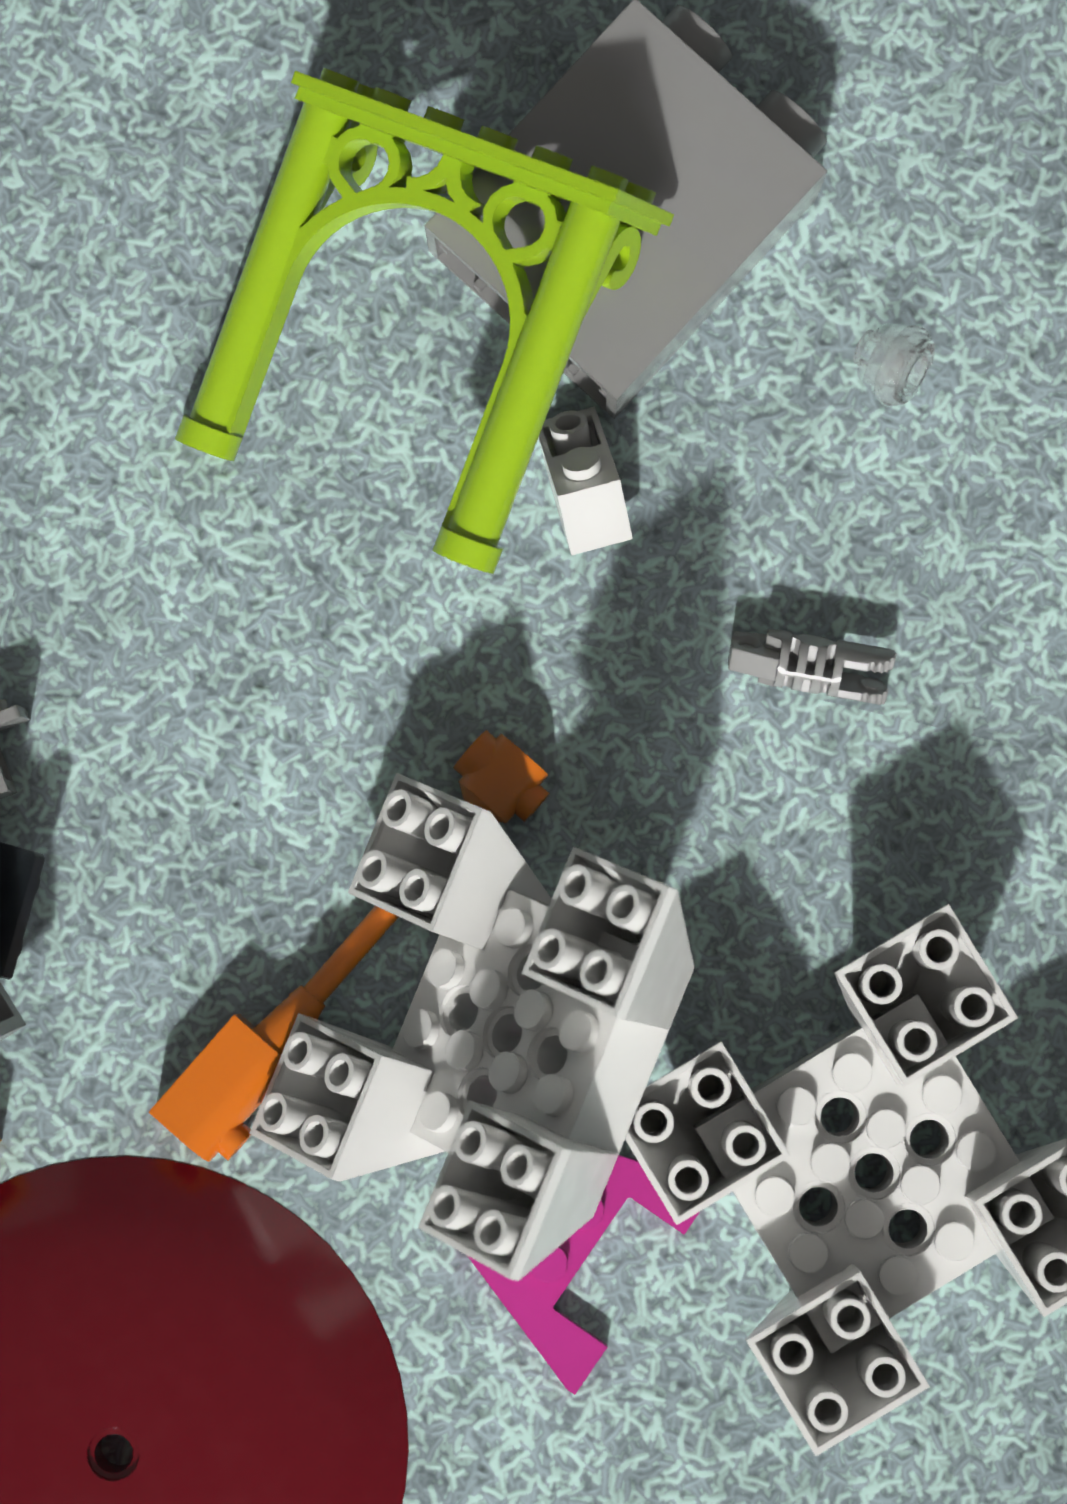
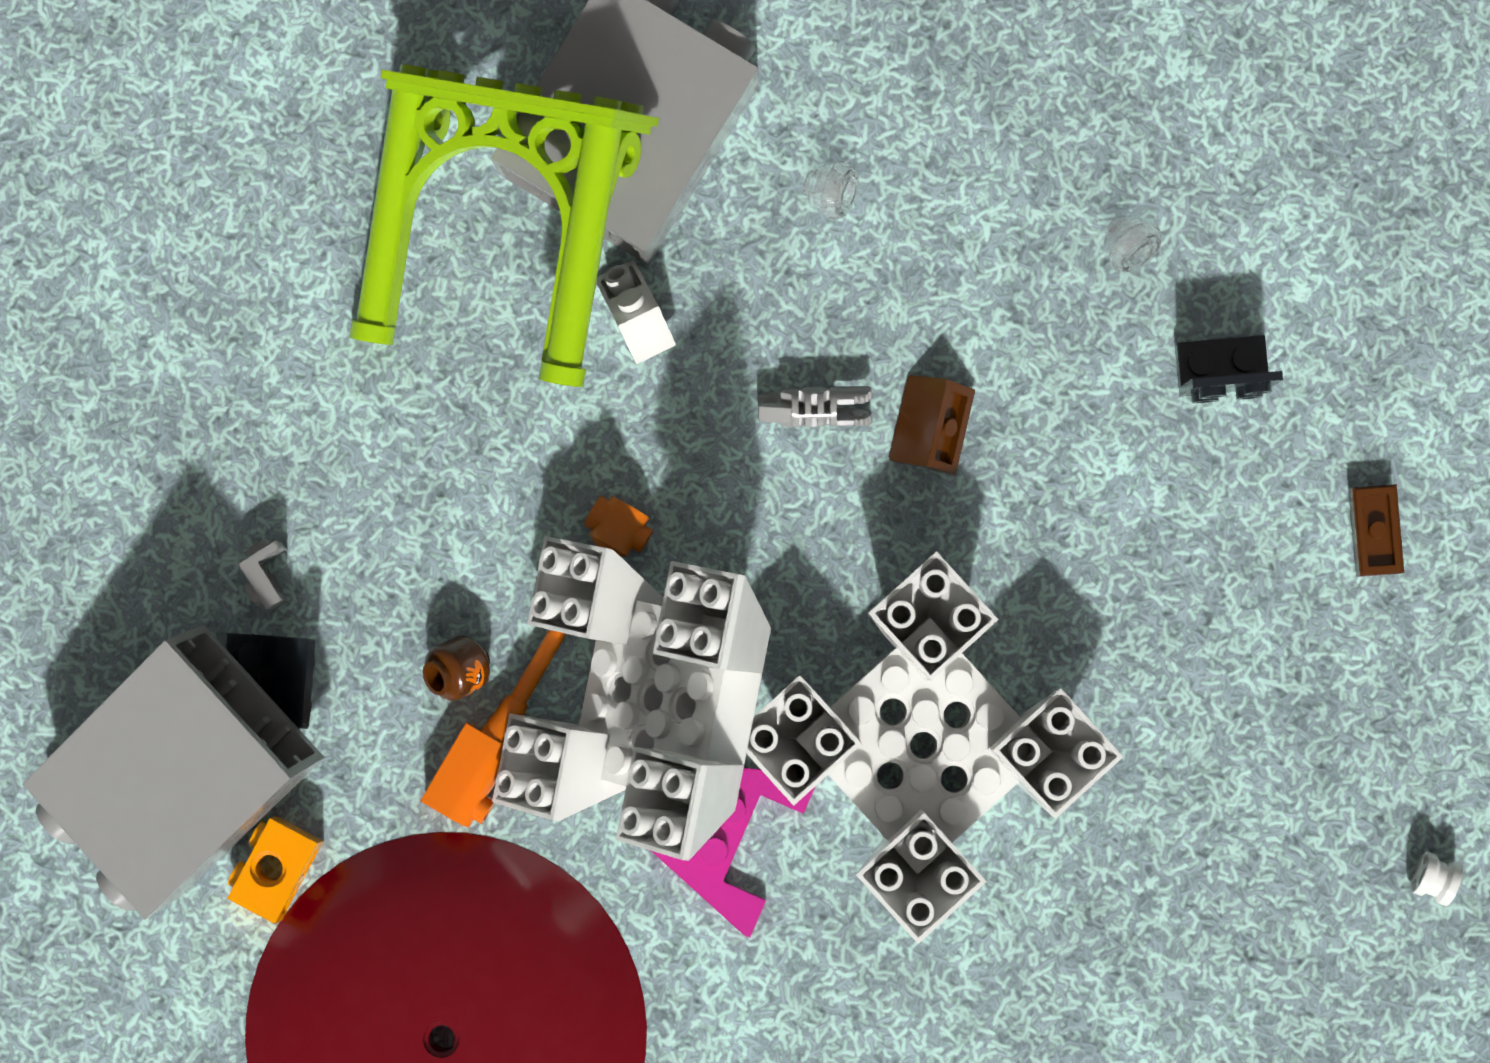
camera: 10 degrees left, 0 degrees up
(235, 934) = (456, 668): none -> reddish brown head
(970, 720) = (932, 424): none -> reddish brown panel

